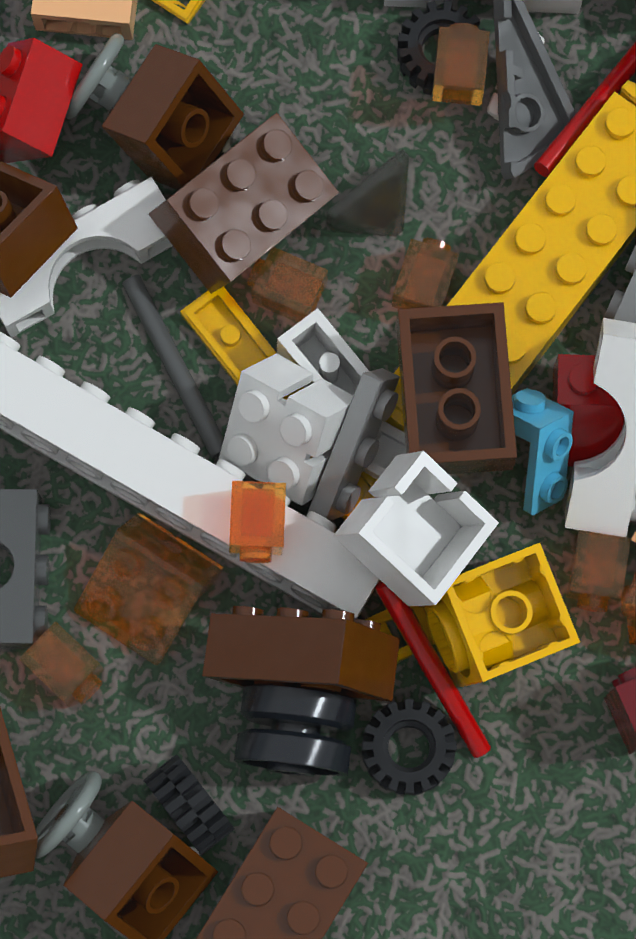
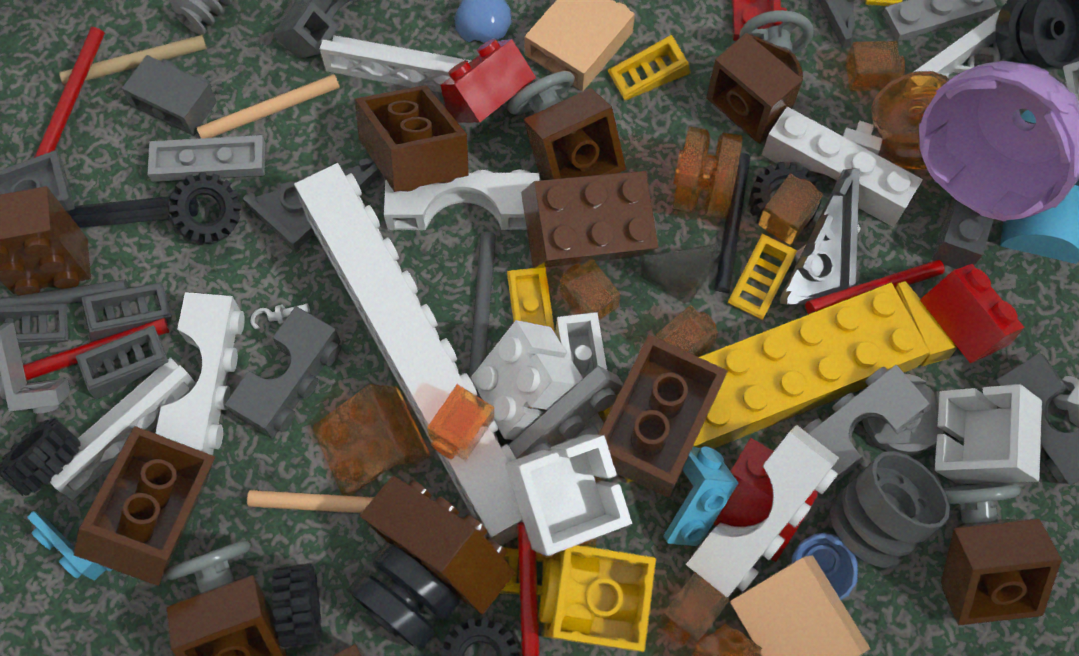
camera: 30 degrees right, 10 degrees down
(63, 665) = (278, 458): clear orange brick -> none
(130, 688) = (307, 501): none -> light nougat bar
(342, 70) = (706, 172): none -> clear orange wheel
(397, 108) = (732, 227): none -> black bar
(462, 117) = (774, 249): none -> yellow slope

